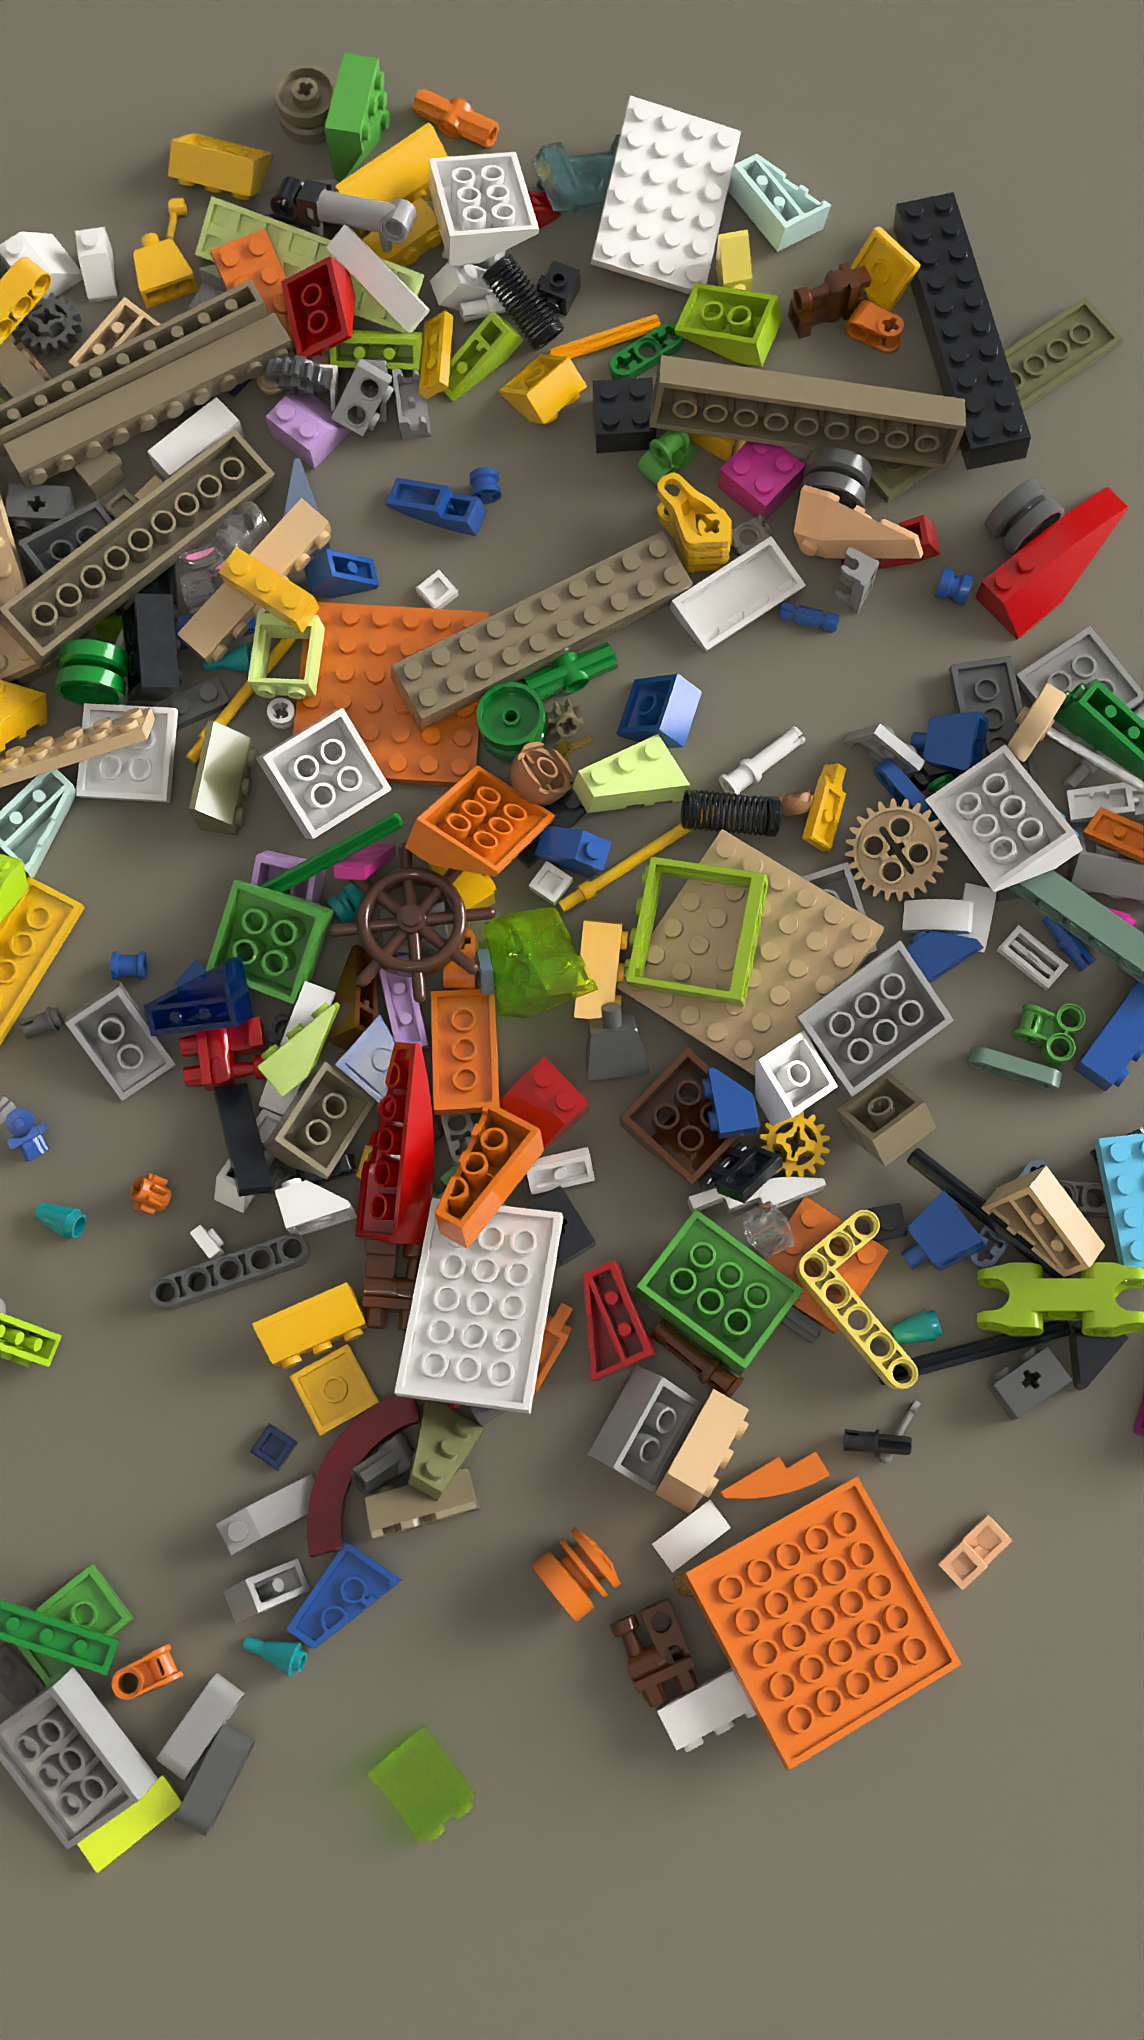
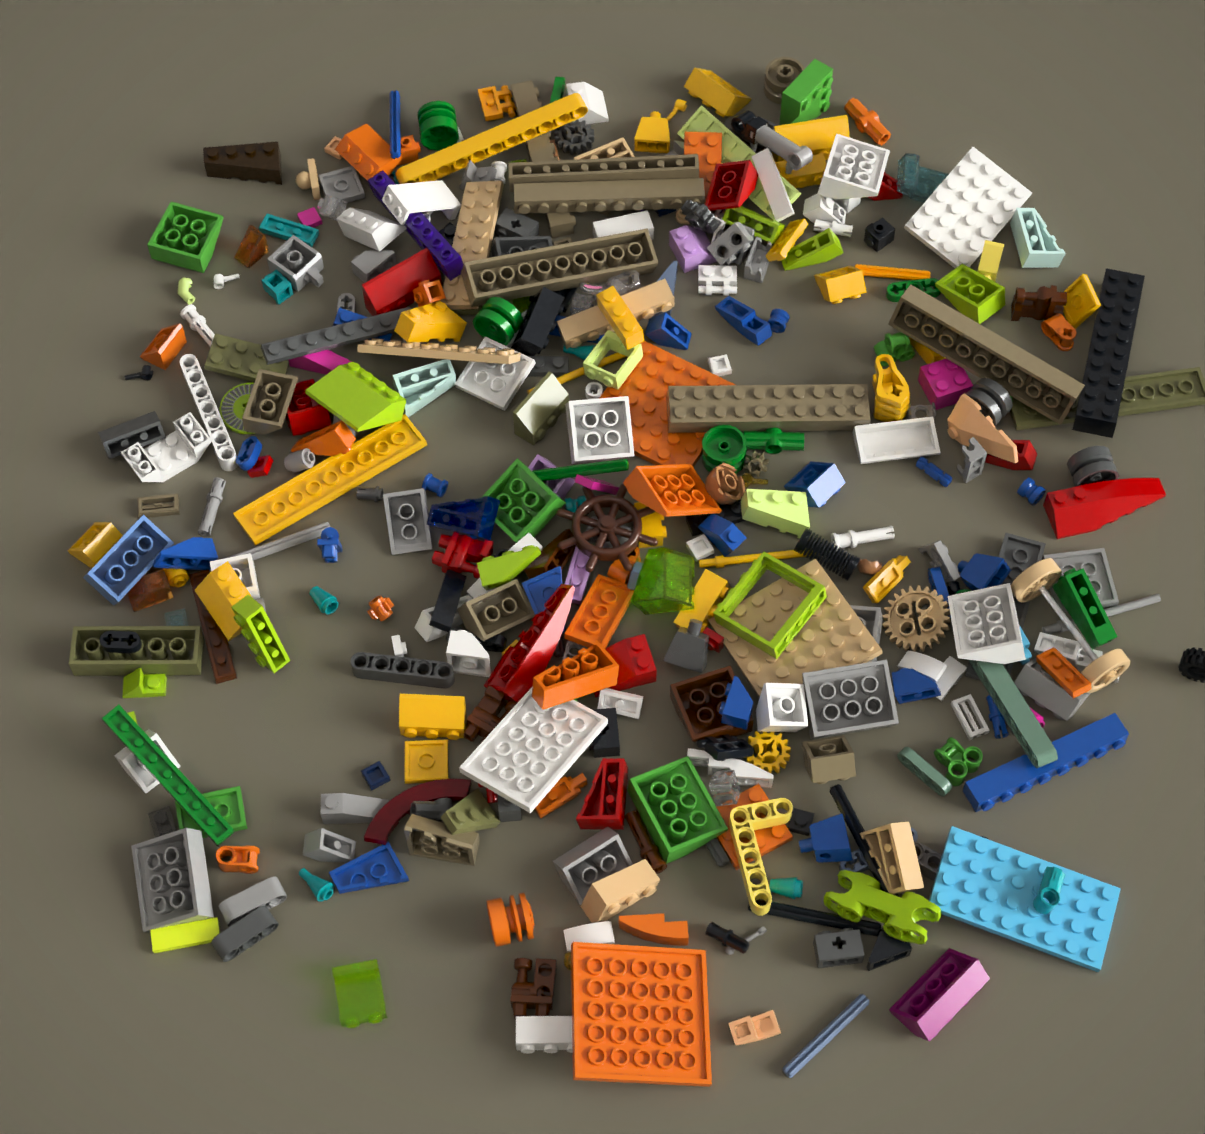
camera: 25 degrees right, 15 degrees down
(96, 264) = (618, 116): white slope -> none
(364, 453) = (717, 275): none -> white plate
(506, 271) = (859, 255): black piece -> none
(623, 414) = (875, 315): black brick -> none
(643, 1014) = (715, 640): none -> red plate
(1072, 1514) = (825, 1036): none -> sand blue axle

